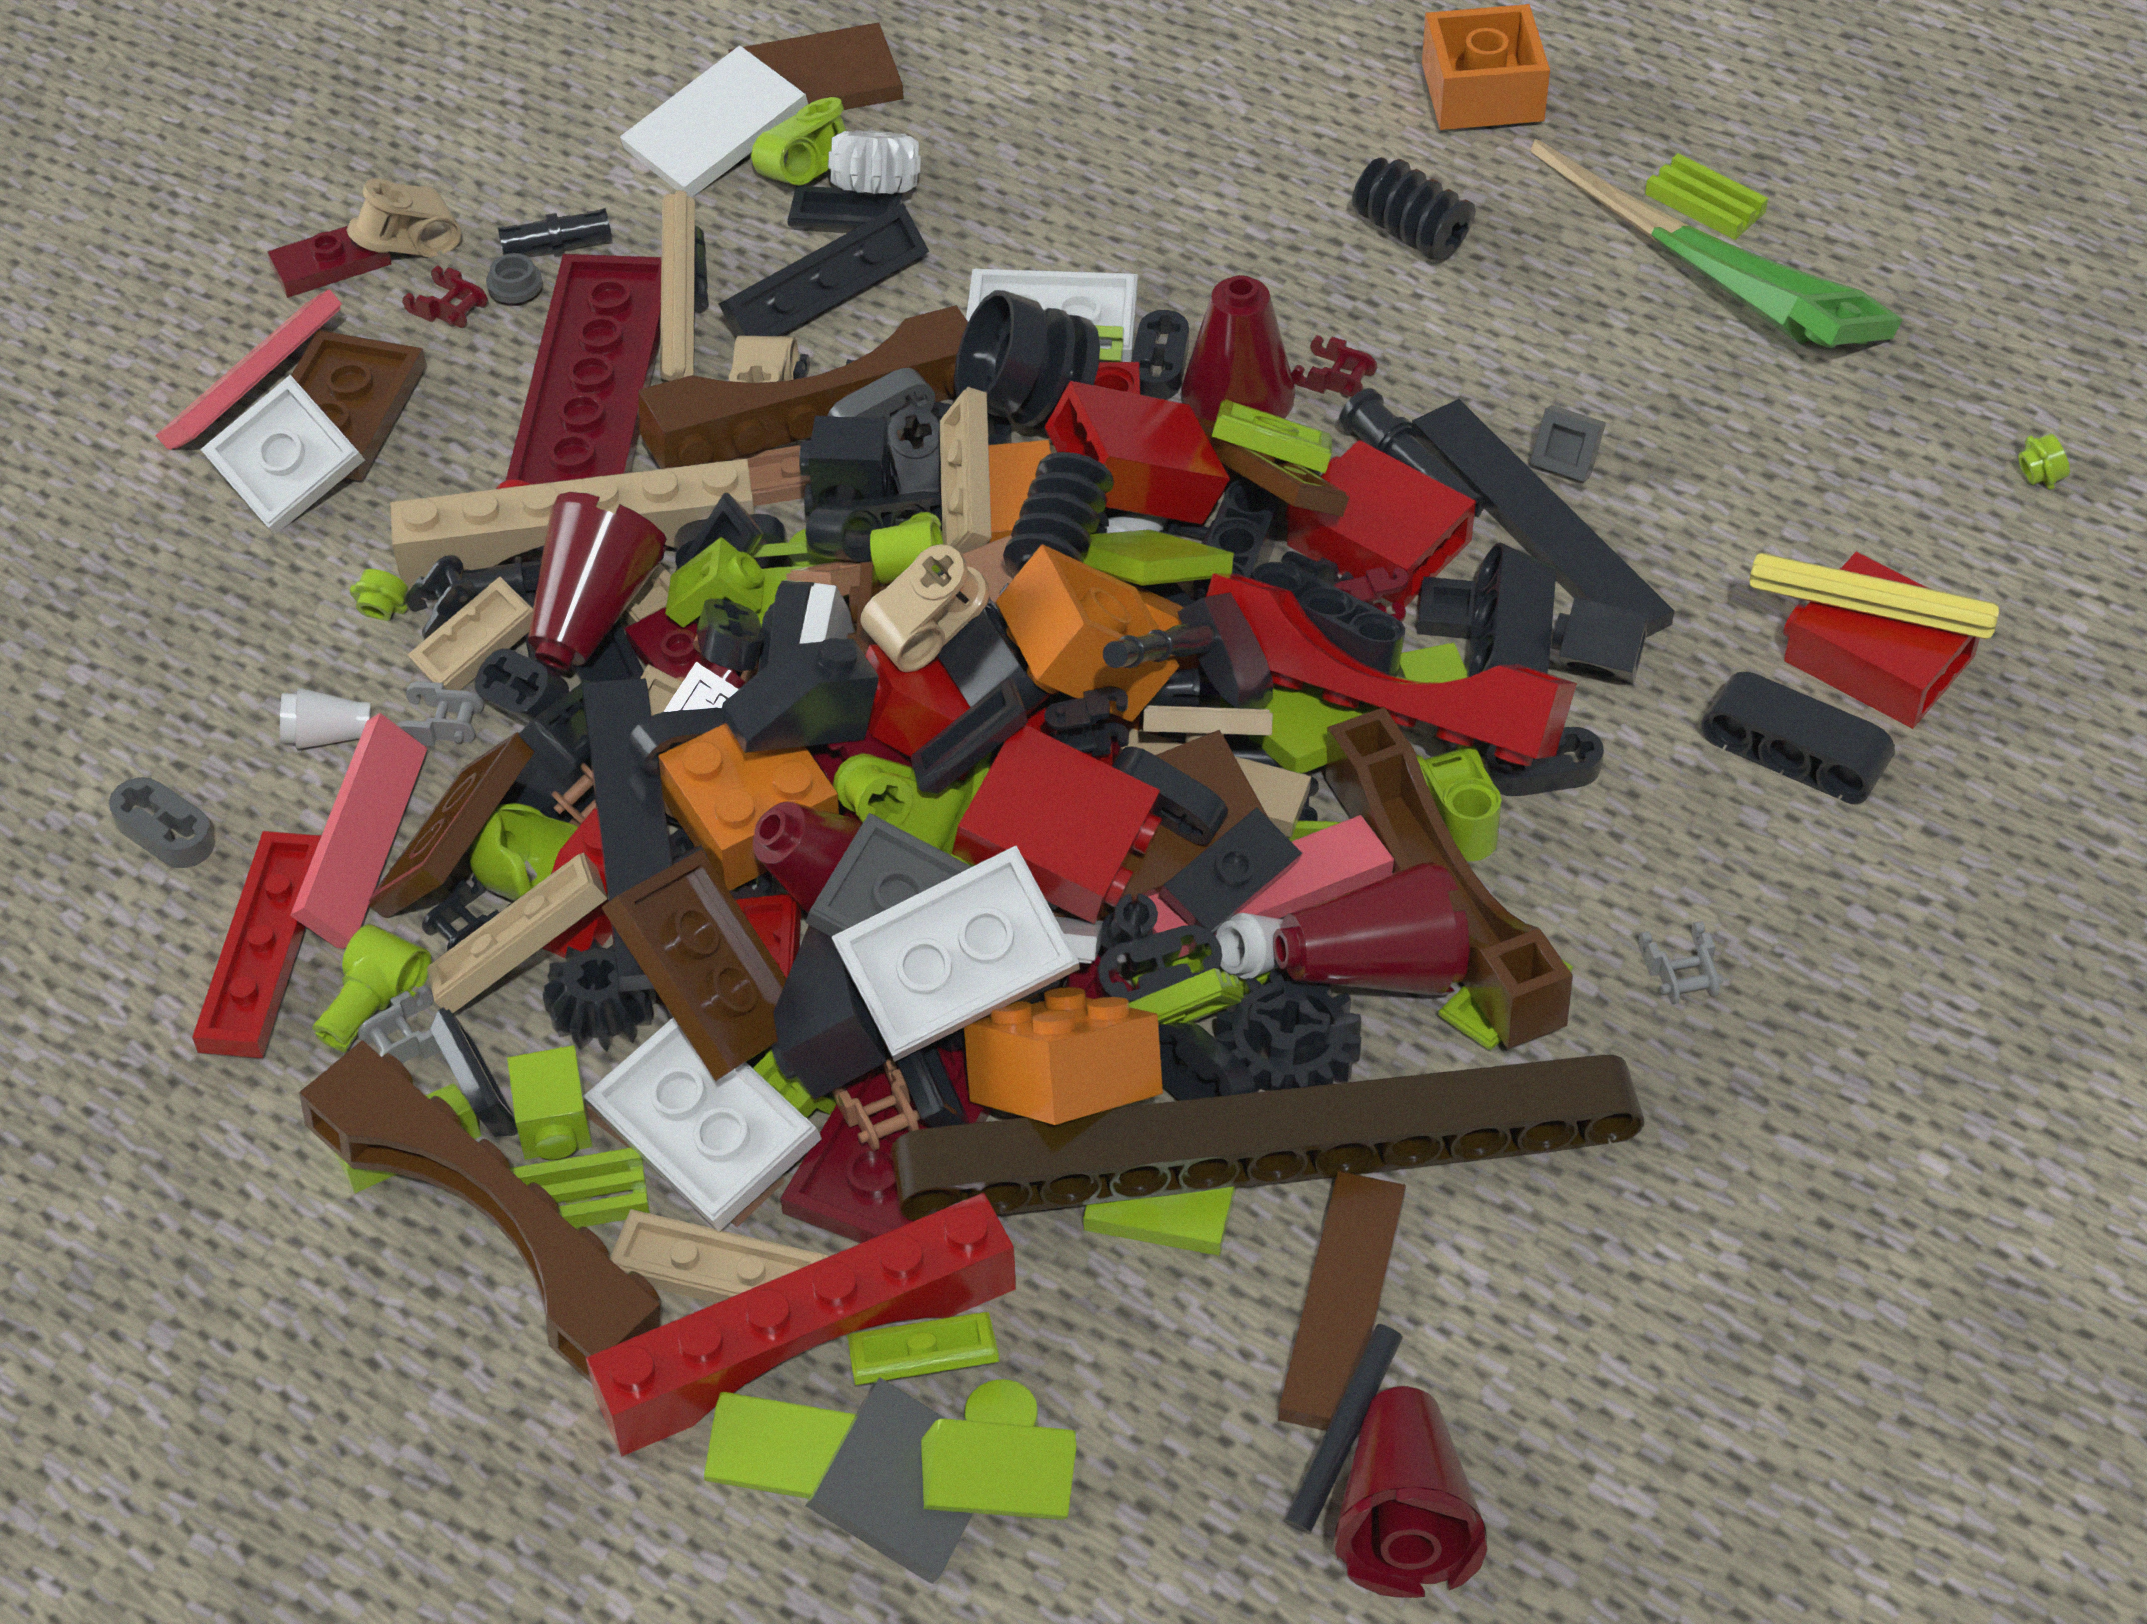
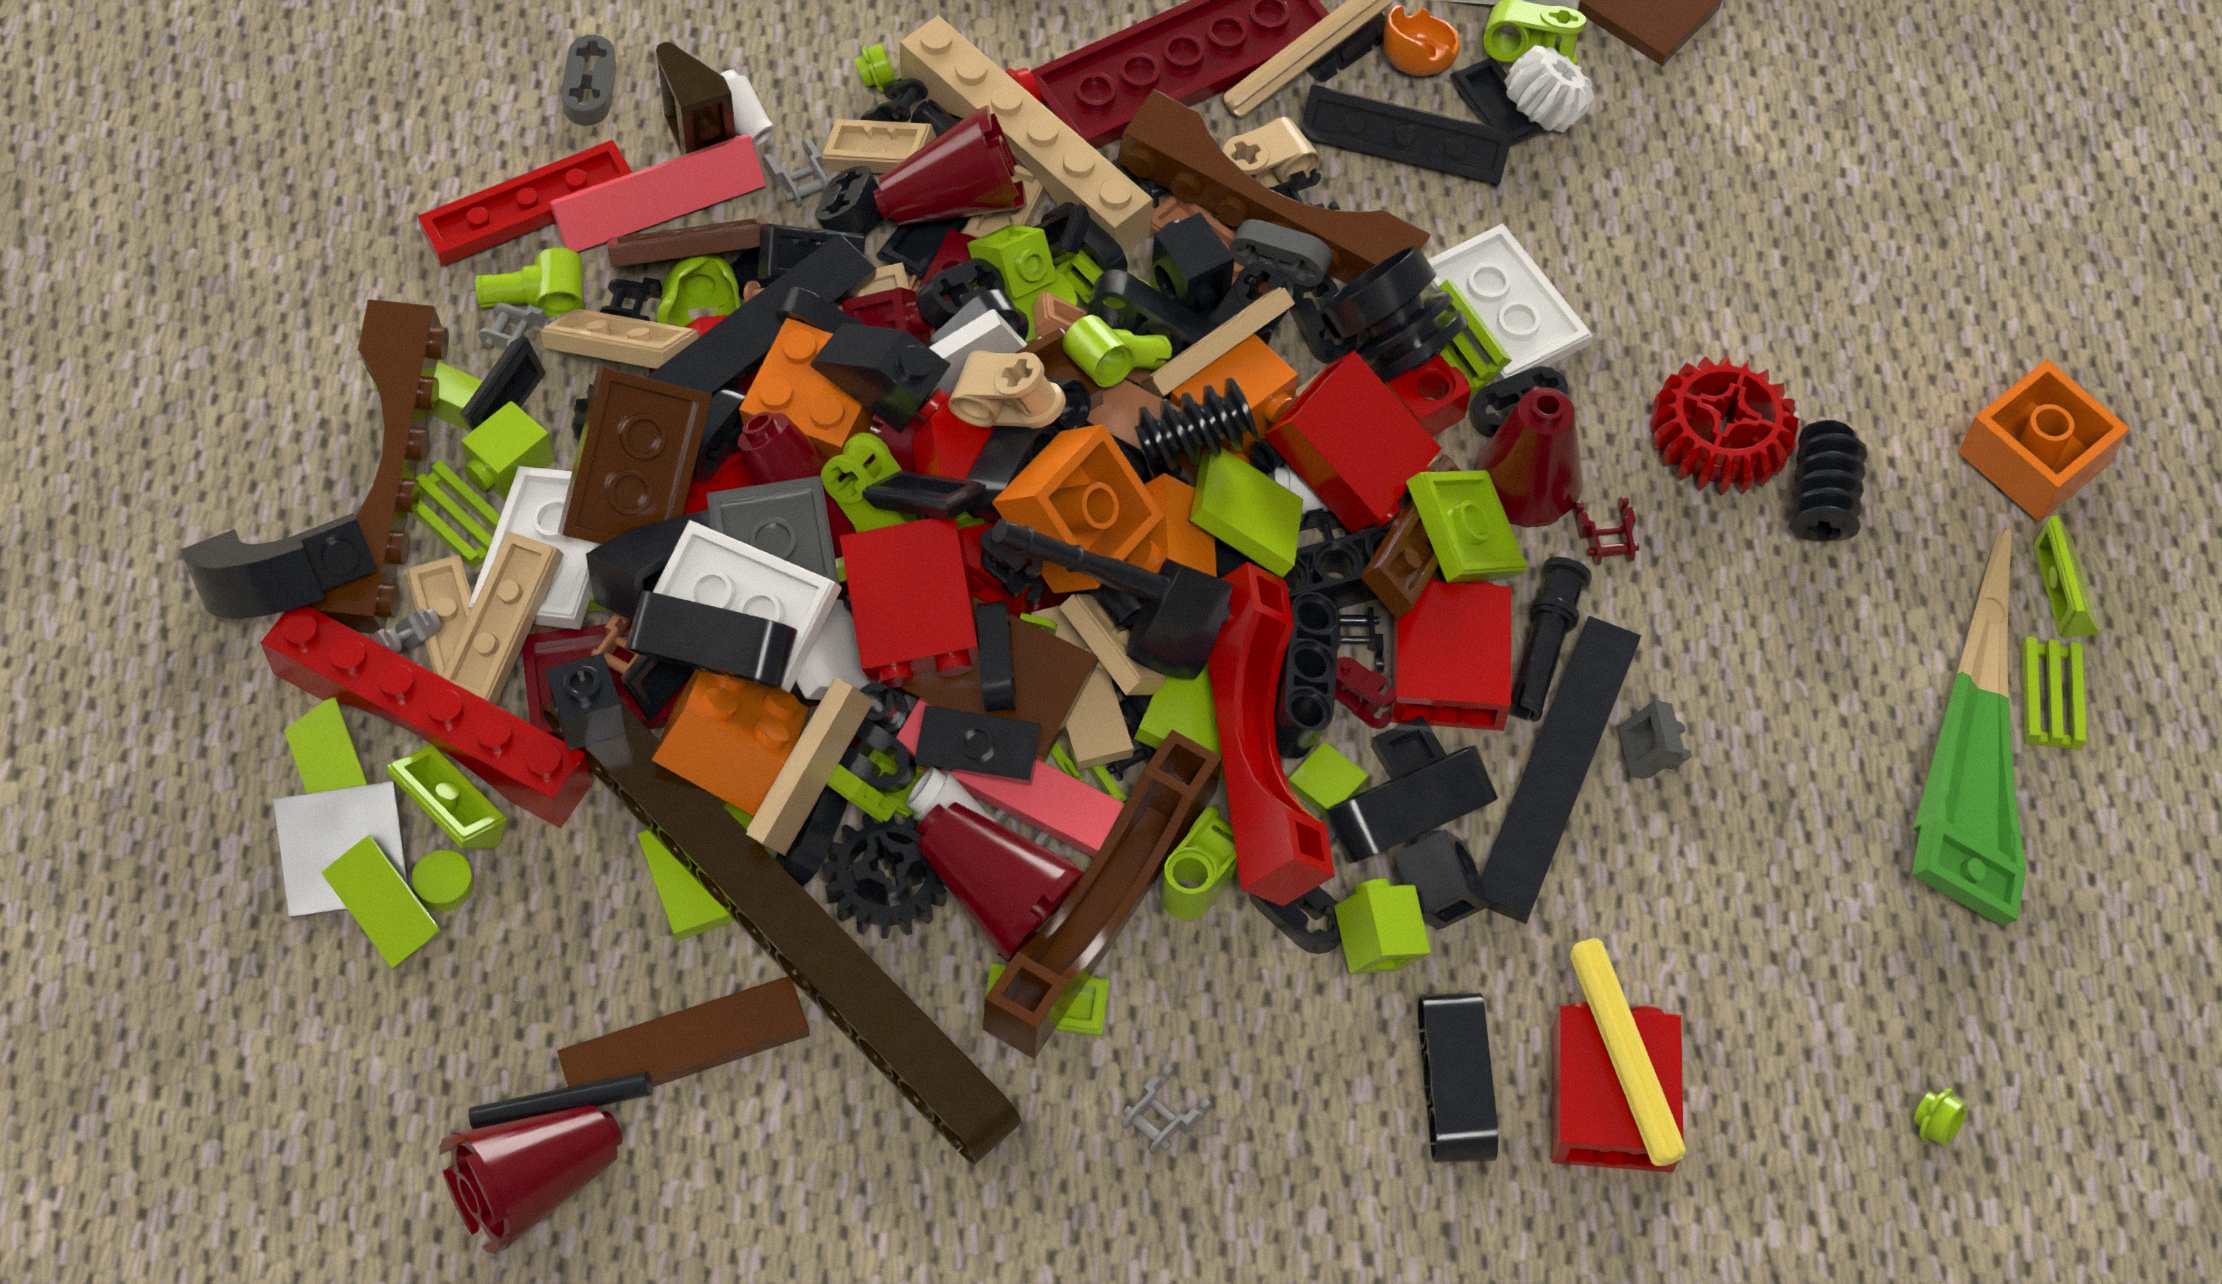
camera: 50 degrees right, 10 degrees up
(329, 727) = (694, 100): none -> dark brown tile
(540, 1373) = (278, 575): none -> black arch
(696, 1283) = (409, 631): none -> light grey piece
(740, 219) = (1419, 42): none -> orange hair
(757, 1184) = (502, 616): none -> tan tile
(954, 1136) = (585, 701): none -> black brick
(988, 981) = (711, 639): none -> black beam
(1165, 999) = (809, 766): none -> tan tile
(1301, 239) = (1756, 436): none -> red gear
(1612, 131) = (2064, 581): none -> lime slope
(1622, 703) = (1381, 927): none -> lime brick

